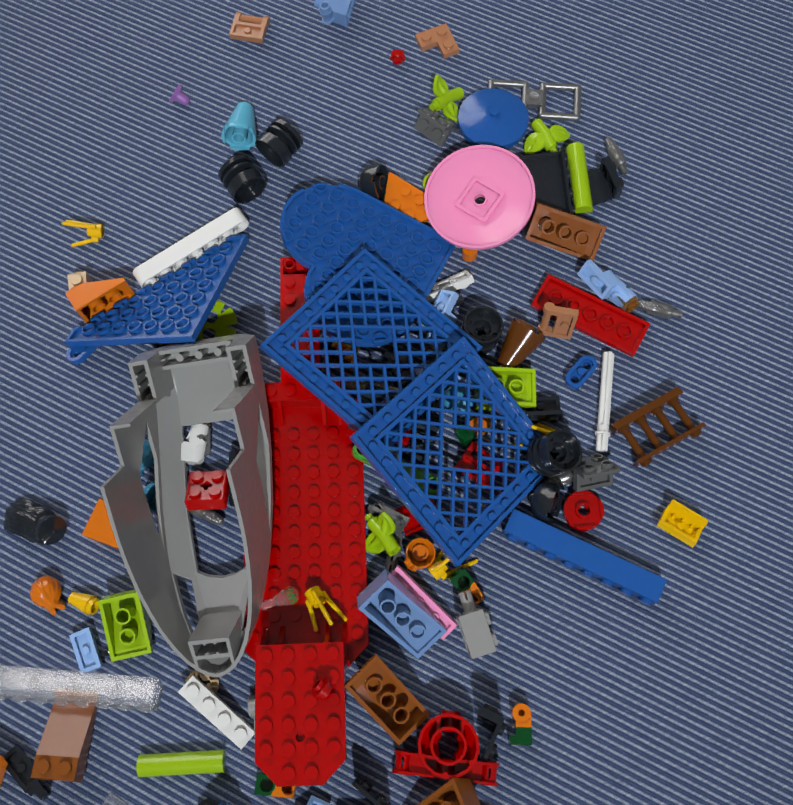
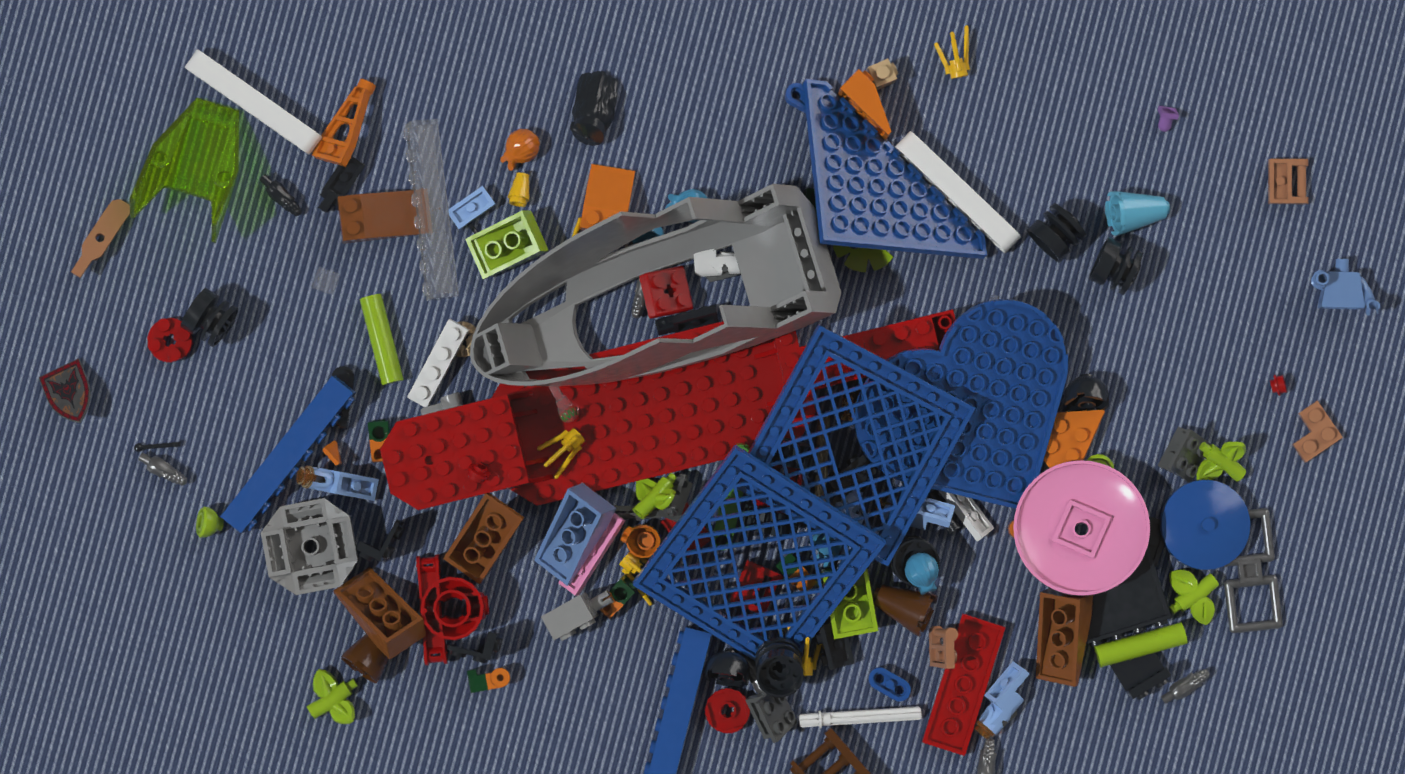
camera: 70 degrees right, 15 degrees up
(492, 320) = (922, 572): none -> dark azure piece

